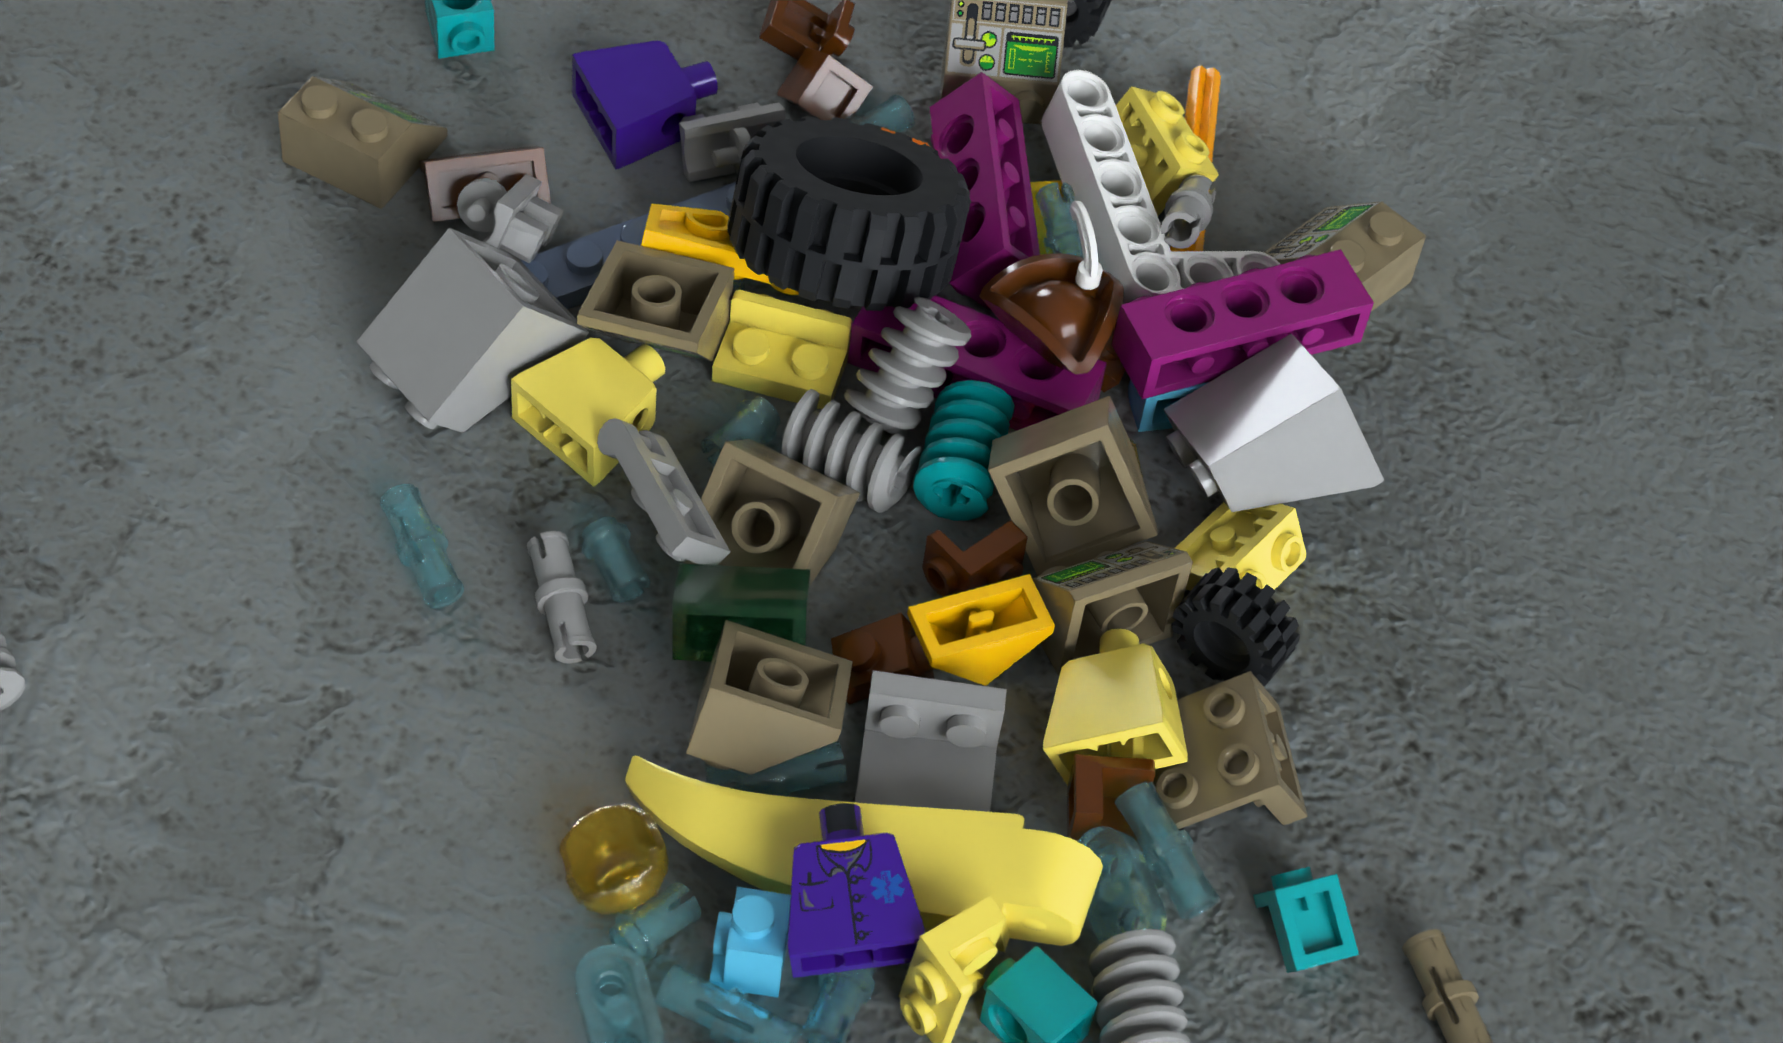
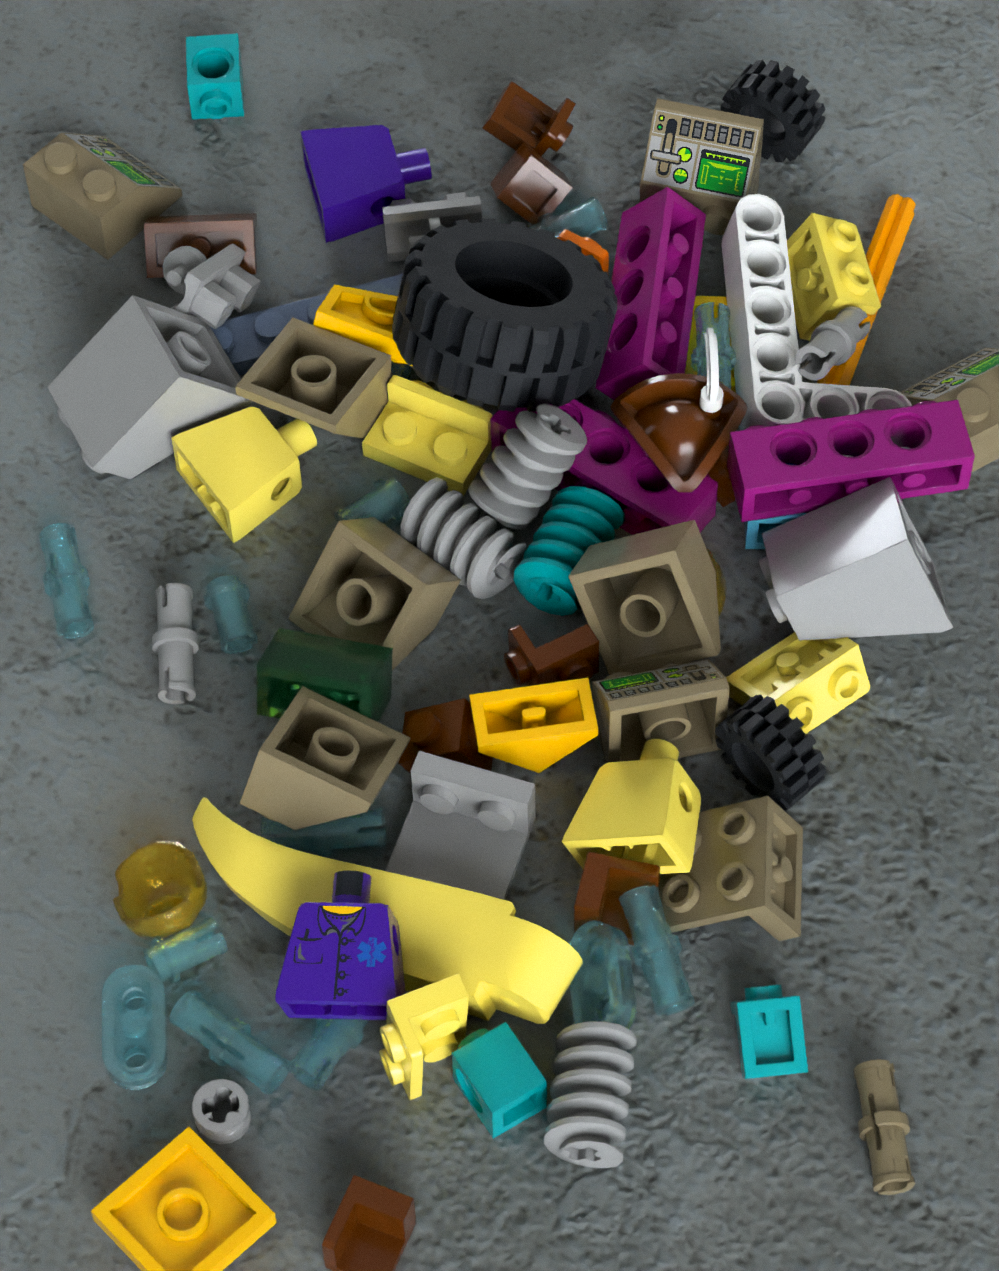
camera: 20 degrees right, 5 degrees up
(664, 493) = (280, 560): light grey plate -> none
(752, 942) = (253, 981): medium azure brick -> none

